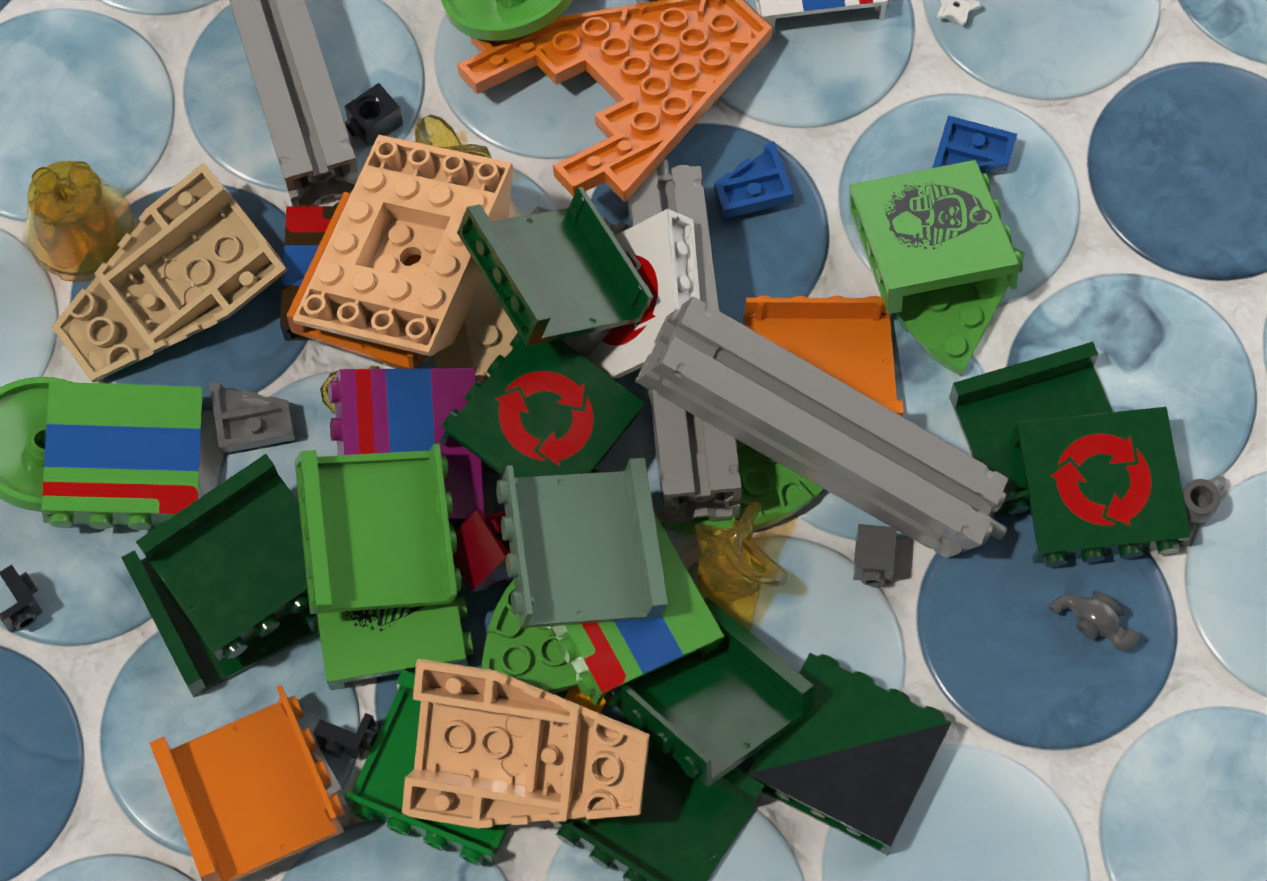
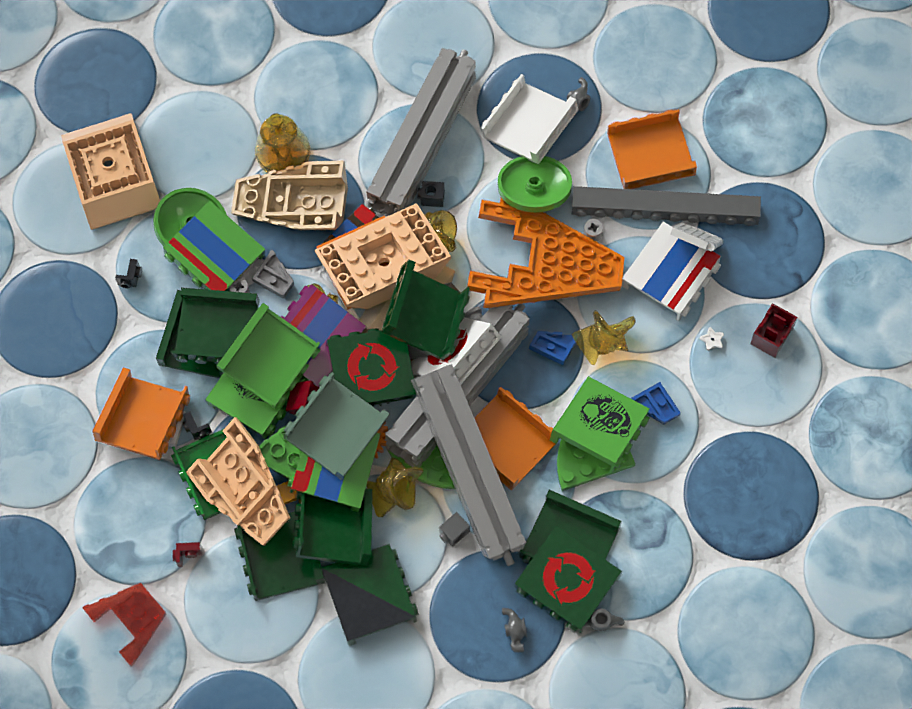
camera: 45 degrees right, 0 degrees up
(207, 470) = (243, 286): none -> light grey wheel
(816, 113) = (602, 338): none -> clear yellow helmet

